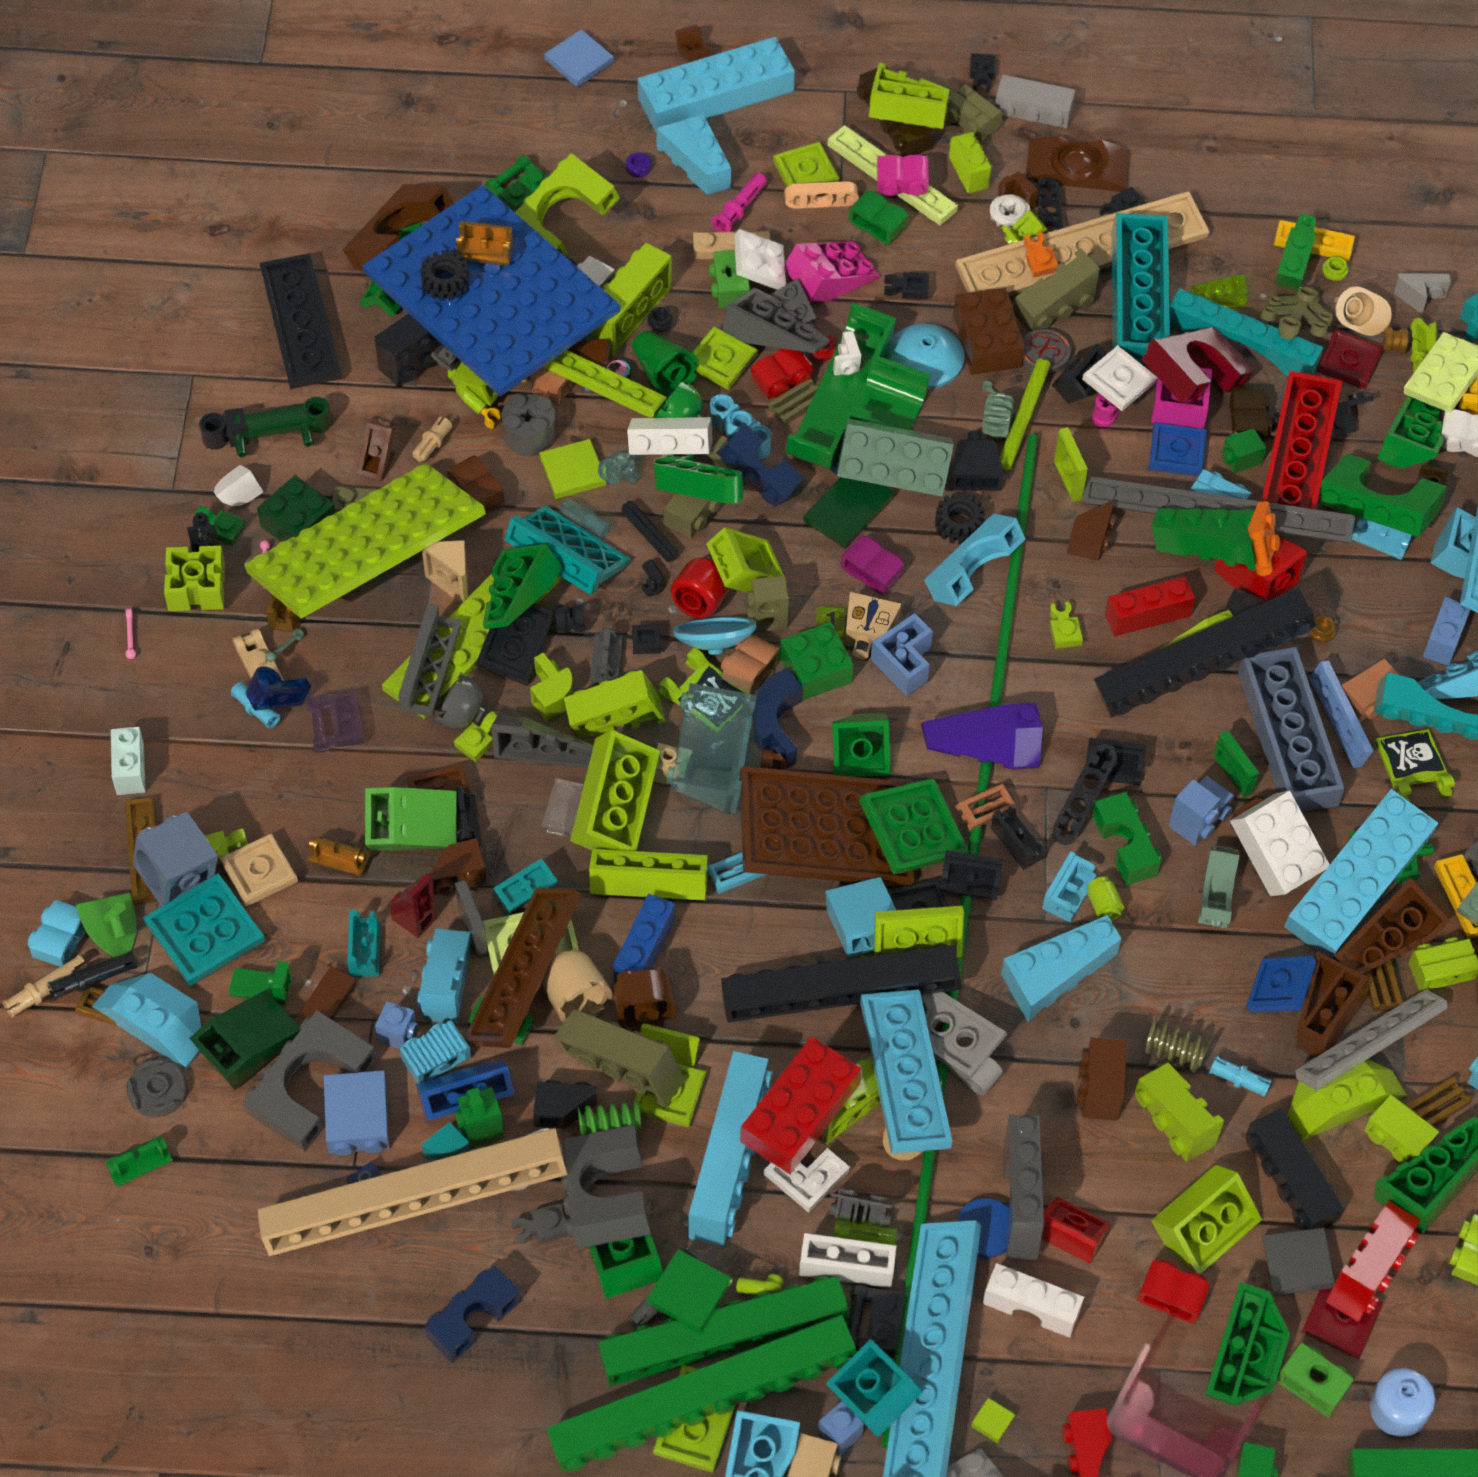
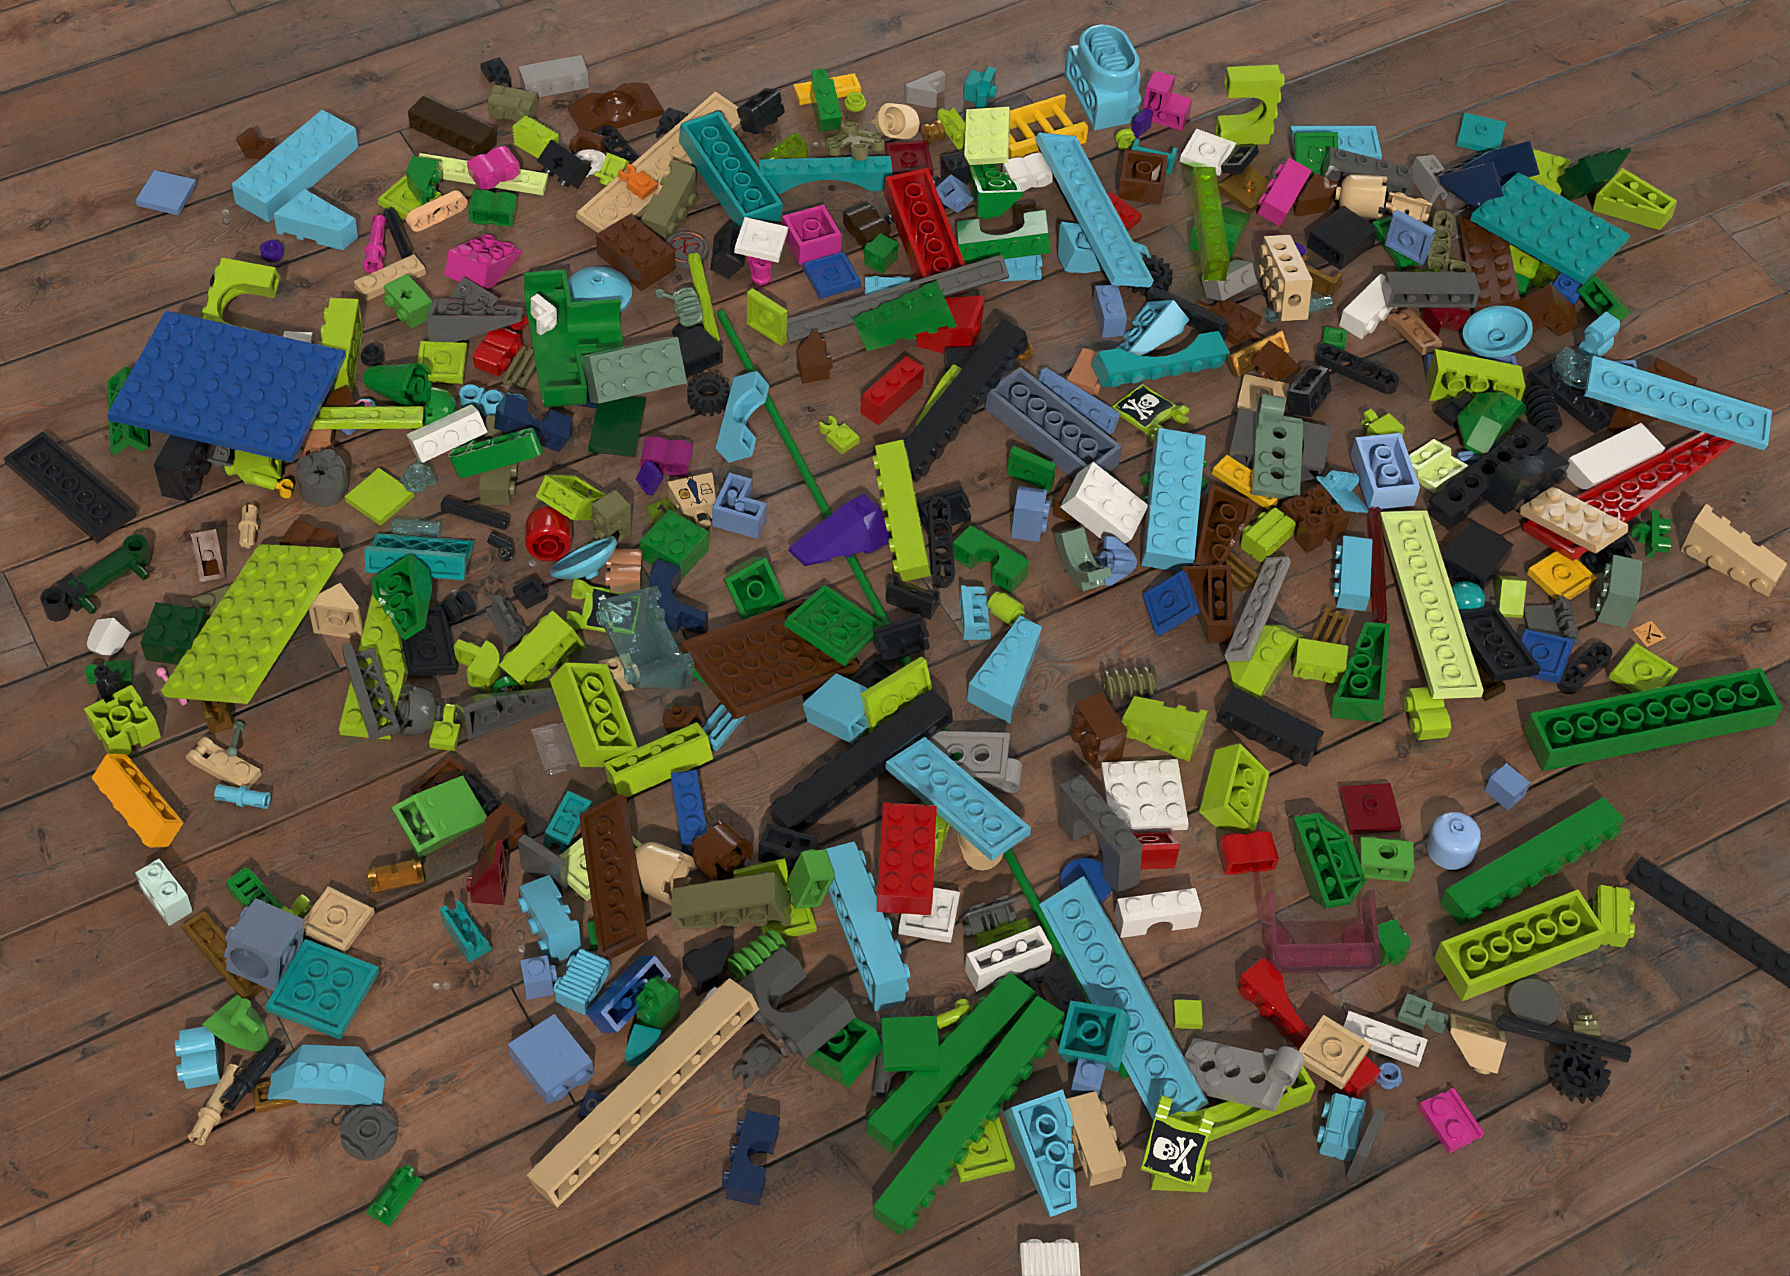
camera: 35 degrees left, 5 degrees down
(130, 652) = (102, 809): bright pink hinge -> none
(160, 660) = (137, 800): none -> light orange brick
(202, 789) = (244, 882): none -> green slope
(245, 1037) = (420, 1052): dark green slope -> none
(249, 983) = (404, 1005): green bracket -> none
(269, 691) = (251, 776): clear blue plate -> none
(317, 1041) = (483, 1021): dark grey arch -> none
(328, 995) = (462, 1000): reddish brown tile -> none
(345, 720) = (326, 769): plate -> none
(406, 206) = (100, 362): reddish brown arch -> none
(445, 287) = (183, 379): black tyre -> none
(485, 243) = (204, 350): pearl gold hinge -> none
(521, 188) = (191, 304): green plate -> none
(559, 722) = (505, 684): none -> green tile
(701, 839) = (681, 716): none -> reddish brown brick
(706, 1072) = (810, 878): none -> bright green brick
(715, 1032) = (784, 843): none -> black brick
(759, 259) = (424, 276): white plate -> none
(767, 759) = (689, 631): reddish brown tile -> none
(770, 200) = (397, 232): none -> black axle
(828, 154) = (423, 177): none -> green slope
(839, 578) = (649, 478): none -> dark purple tile
(908, 100) = (463, 111): lime wedge -> none
(911, 285) = (551, 245): black plate -> none
(969, 814) = (868, 597): nougat tile -> none
(978, 202) = (563, 164): none -> black brick
(1065, 741) = (902, 511): none -> lime brick
(1110, 1172) = (1146, 794): none -> white plate
(1176, 359) = (811, 205): dark red arch -> none
(1222, 234) = (761, 111): none -> black brick
(1240, 1076) = (1186, 681): medium azure pin -> none
(1256, 909) = (1118, 558): none -> medium blue brick
(1264, 538) = (952, 298): orange plate -> none
(1298, 1261) = (1316, 785): dark grey tile -> none
(1366, 420) = (954, 193): none -> medium blue brick
(1373, 1261) = (1369, 757): wedge -> none
(1388, 394) = (955, 165): none -> black brick

